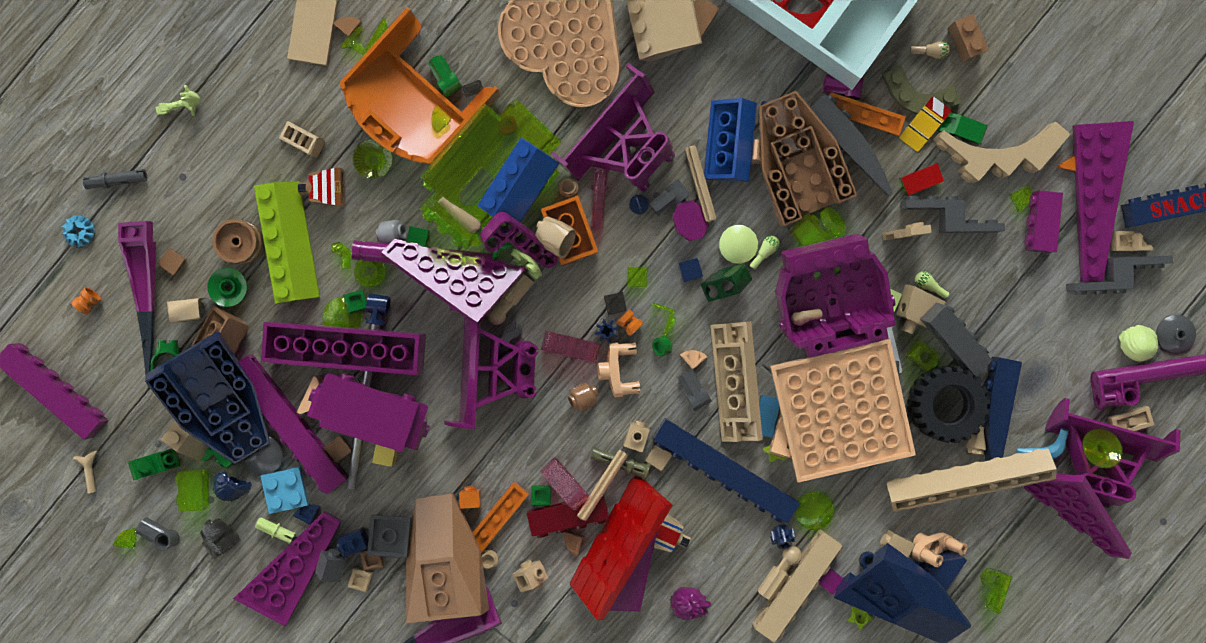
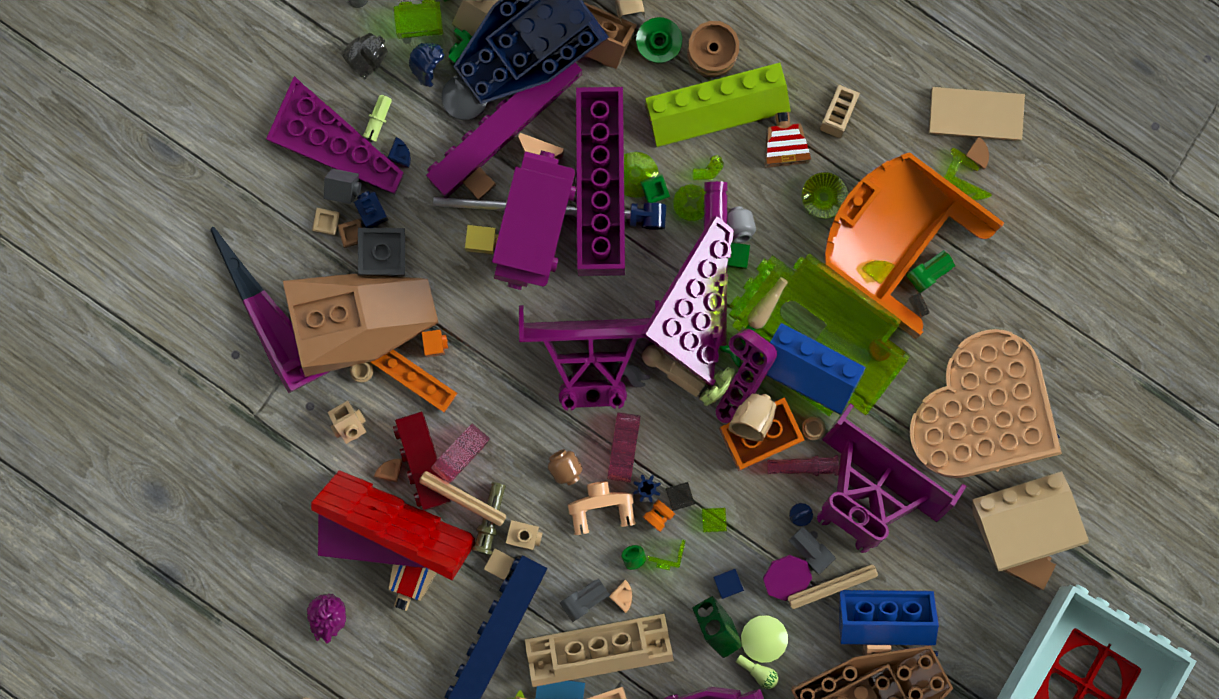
camera: 80 degrees right, 5 degrees down
(284, 490) = (425, 125): medium azure plate -> none
(540, 495) = (442, 427): green tile -> none

